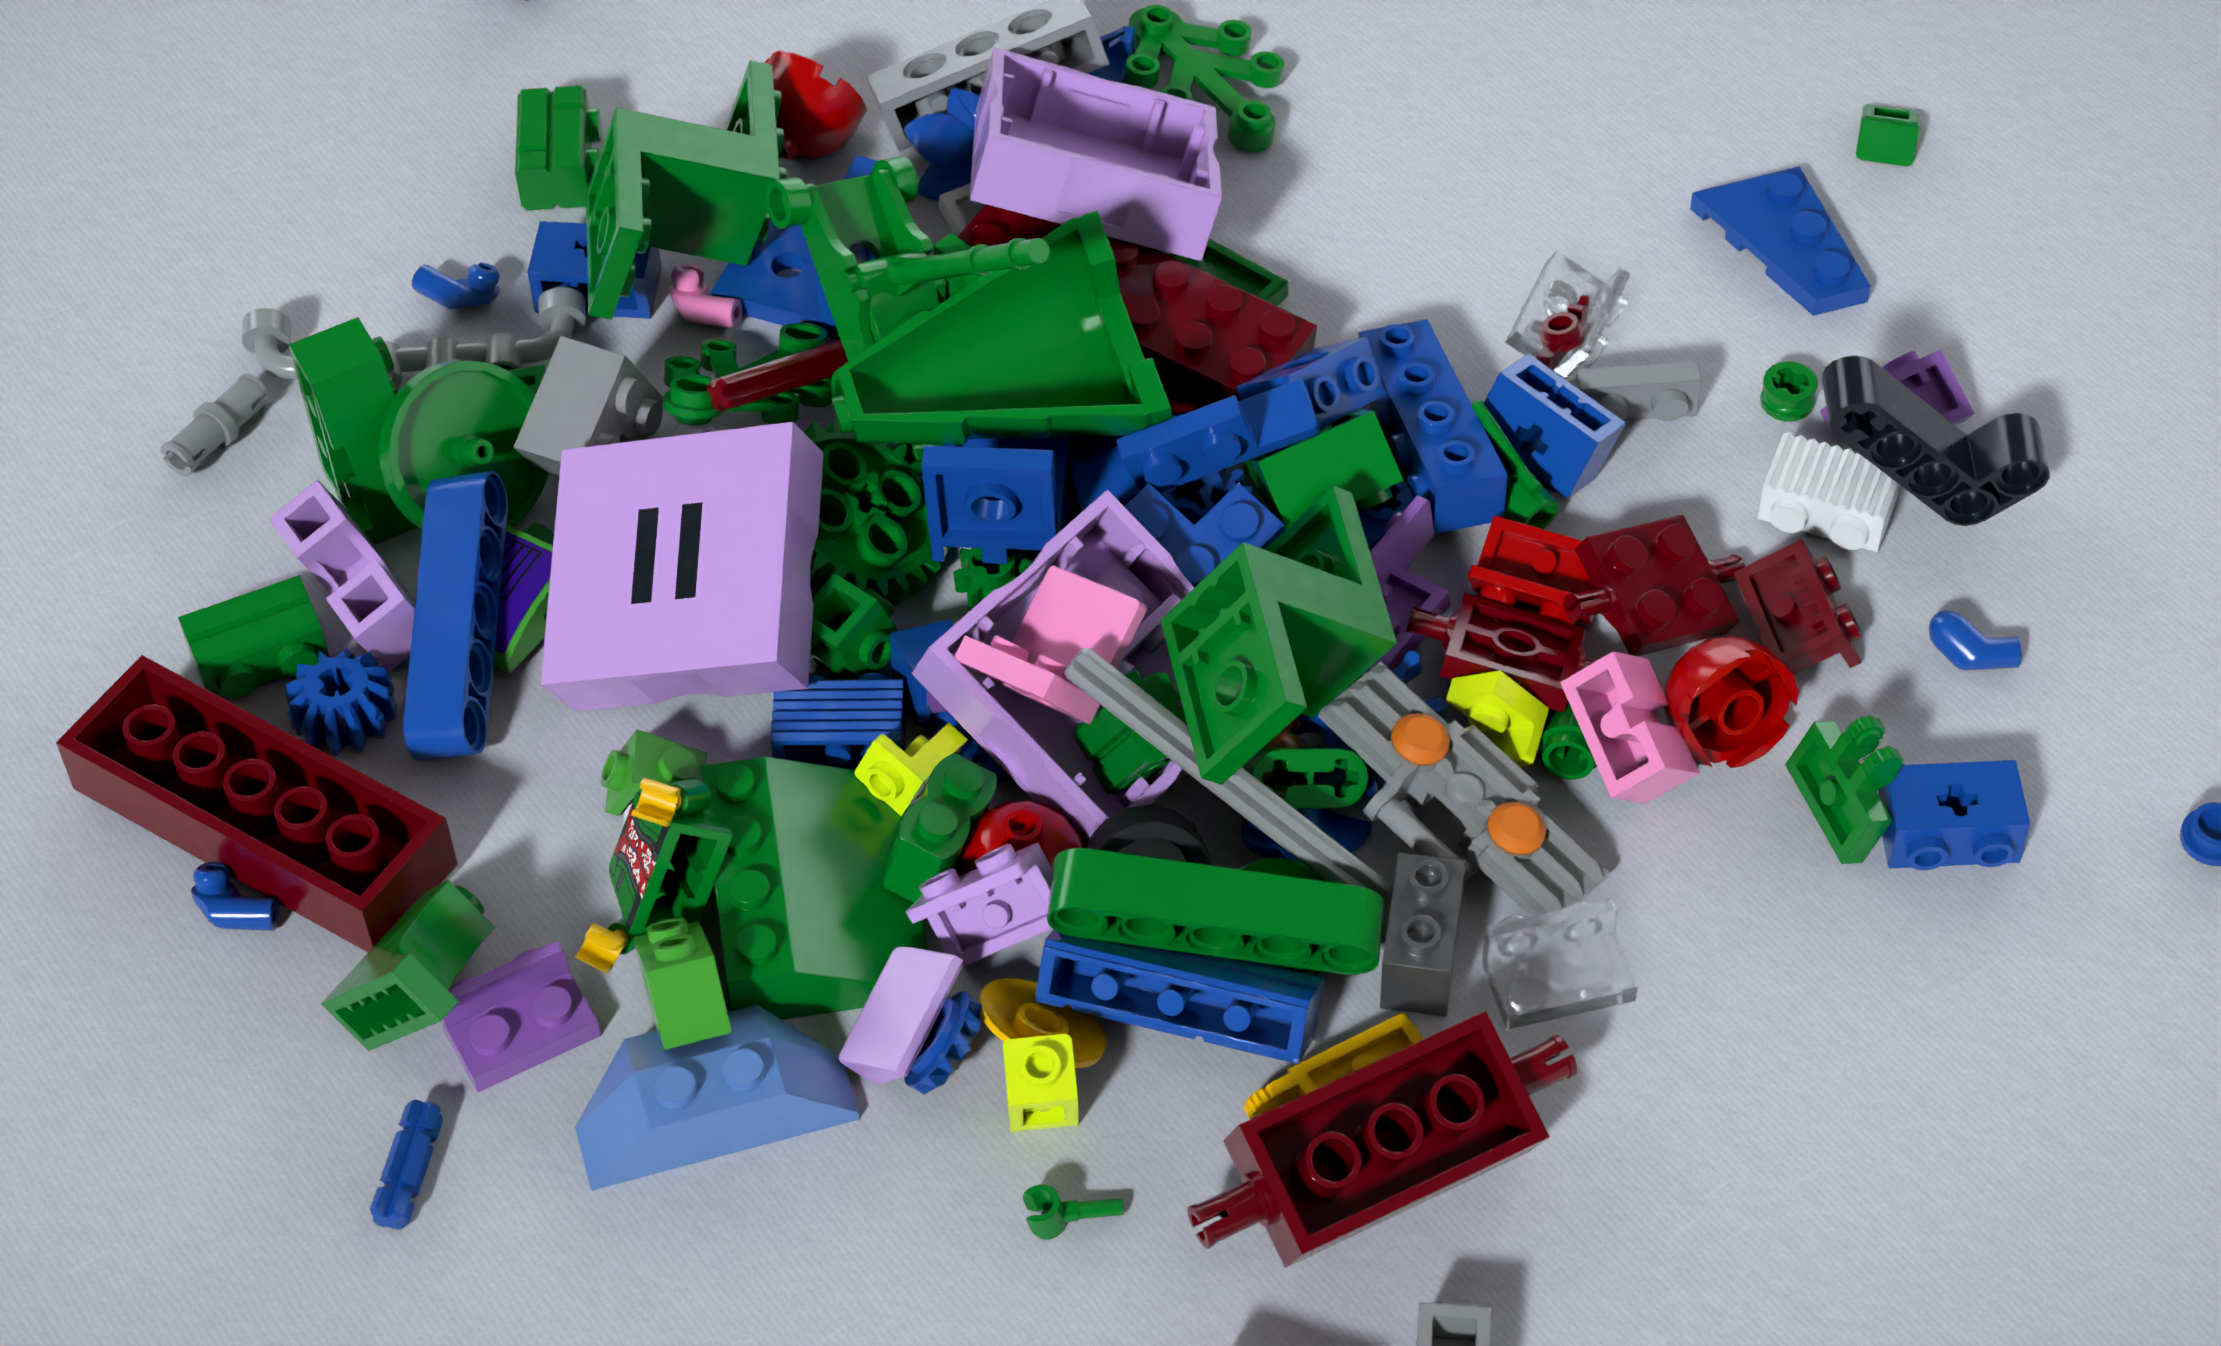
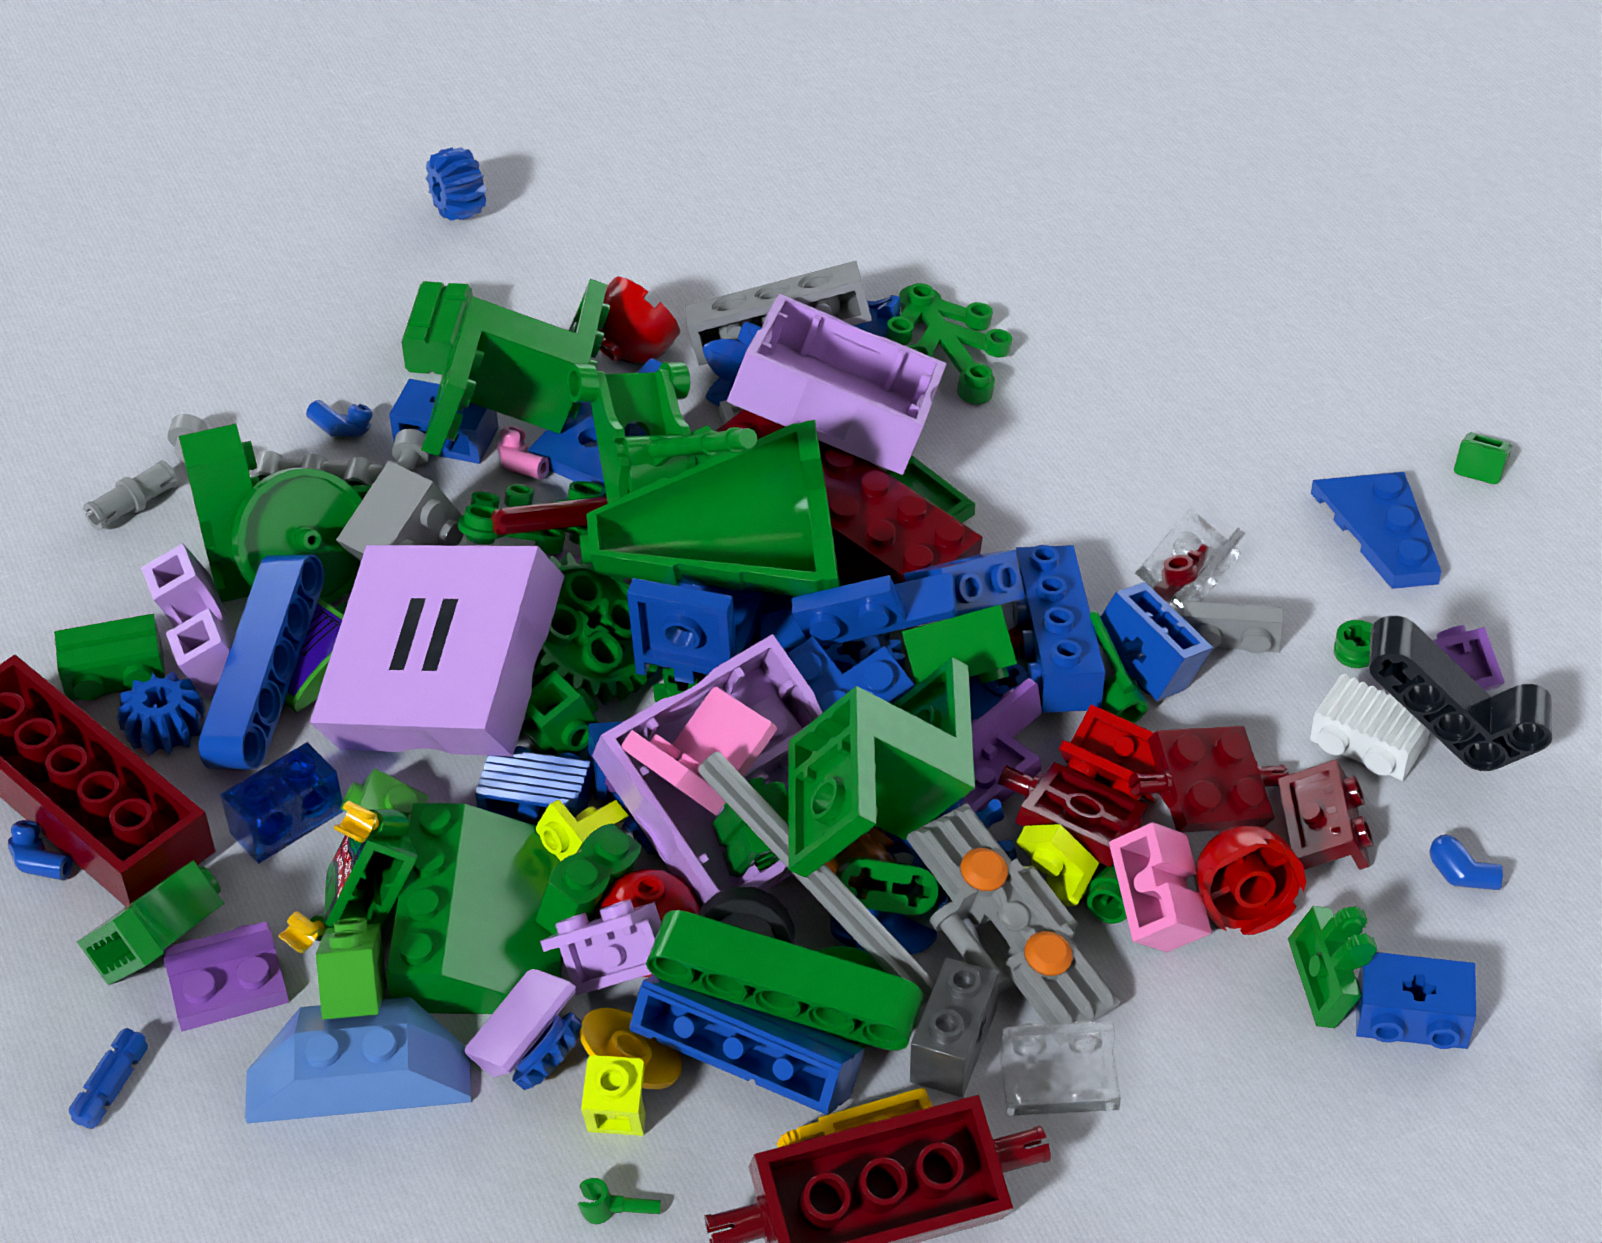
camera: 10 degrees right, 5 degrees down
(529, 789) = (282, 802): none -> clear blue brick

